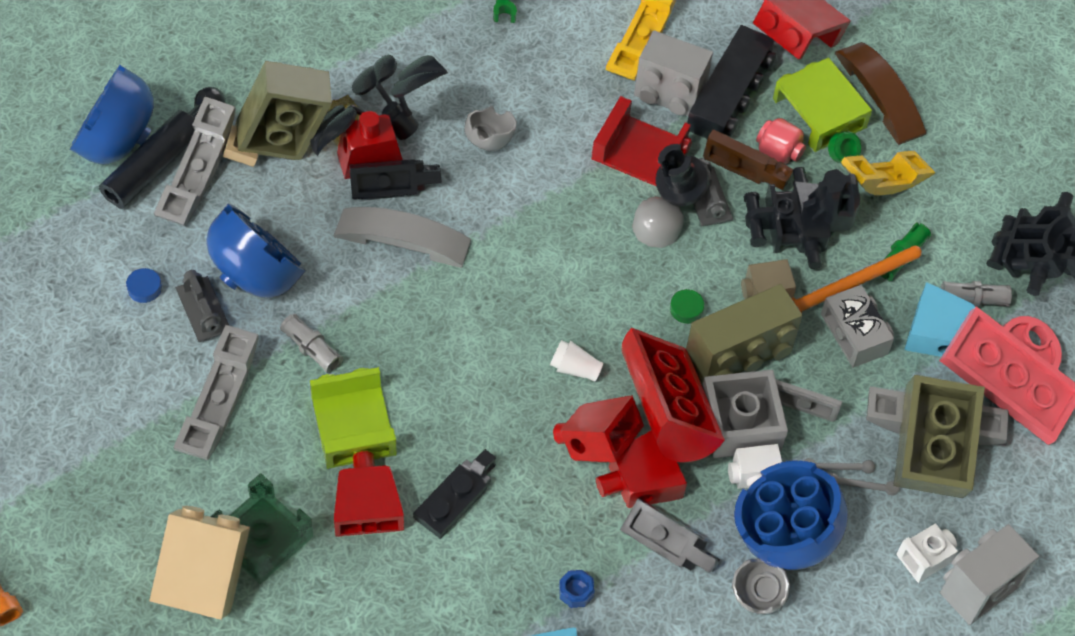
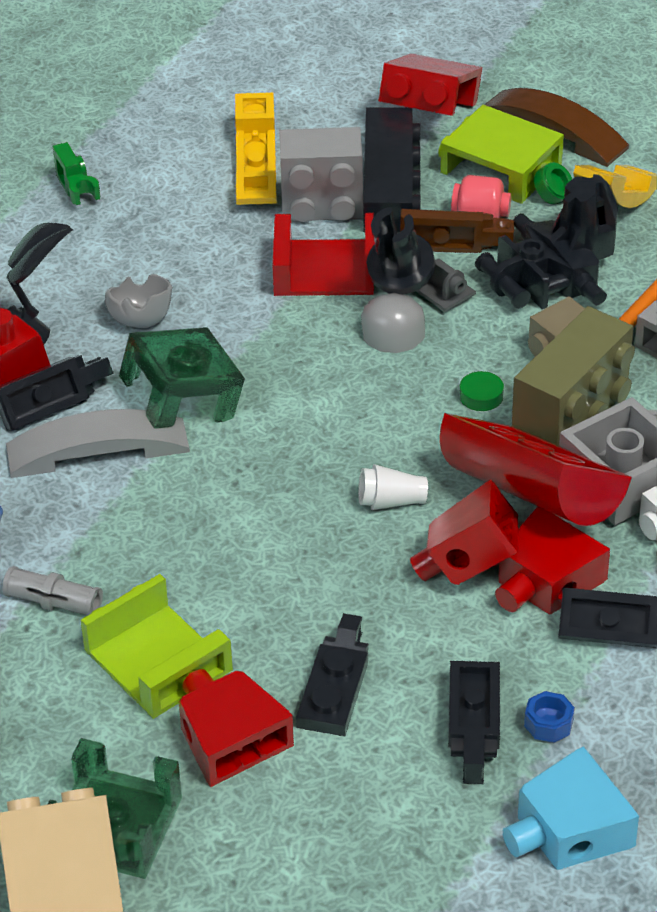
camera: 20 degrees left, 15 degrees down
(481, 205) = (179, 367): none -> clear green panel
(528, 564) = (474, 715): none -> black hinge

